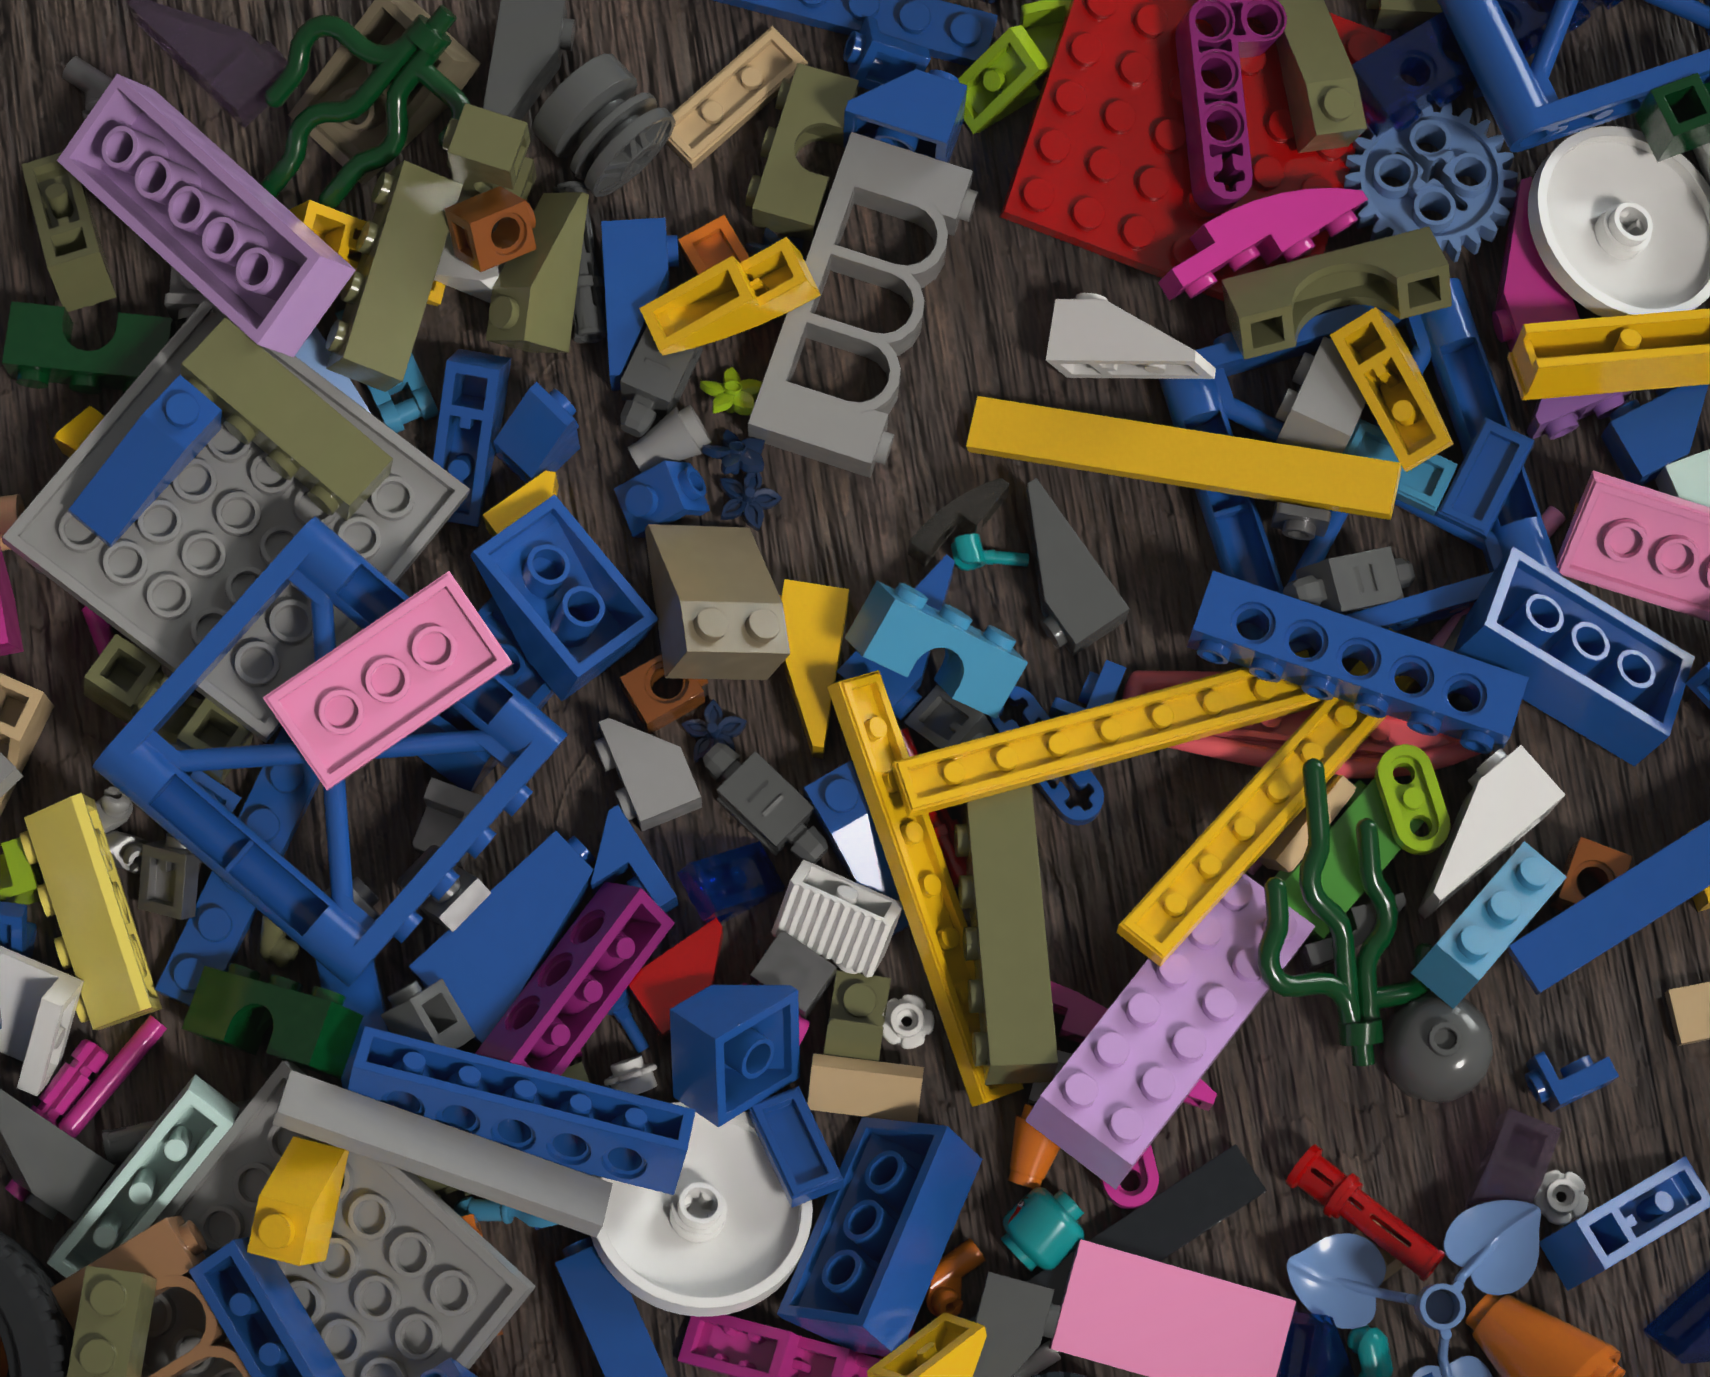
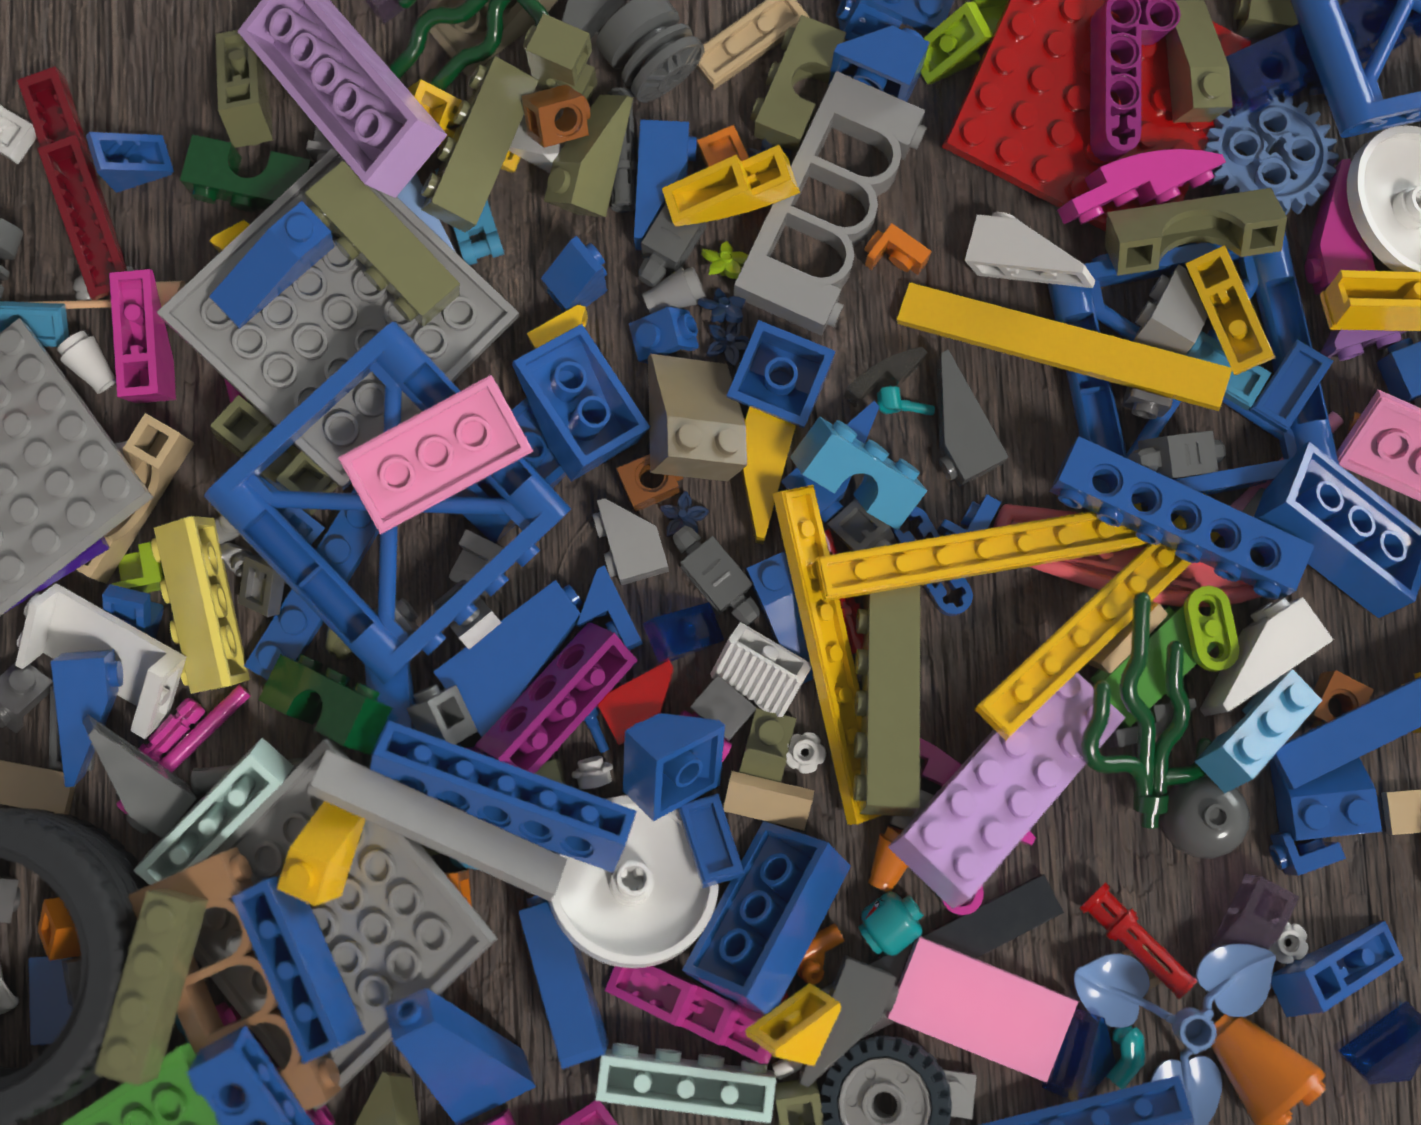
camera: 10 degrees right, 5 degrees up
(469, 423) = (524, 260): blue slope -> none
(822, 532) = (781, 374): none -> blue slope
(965, 356) = (903, 250): none -> orange bracket
(1592, 1010) = (1328, 806): none -> blue slope

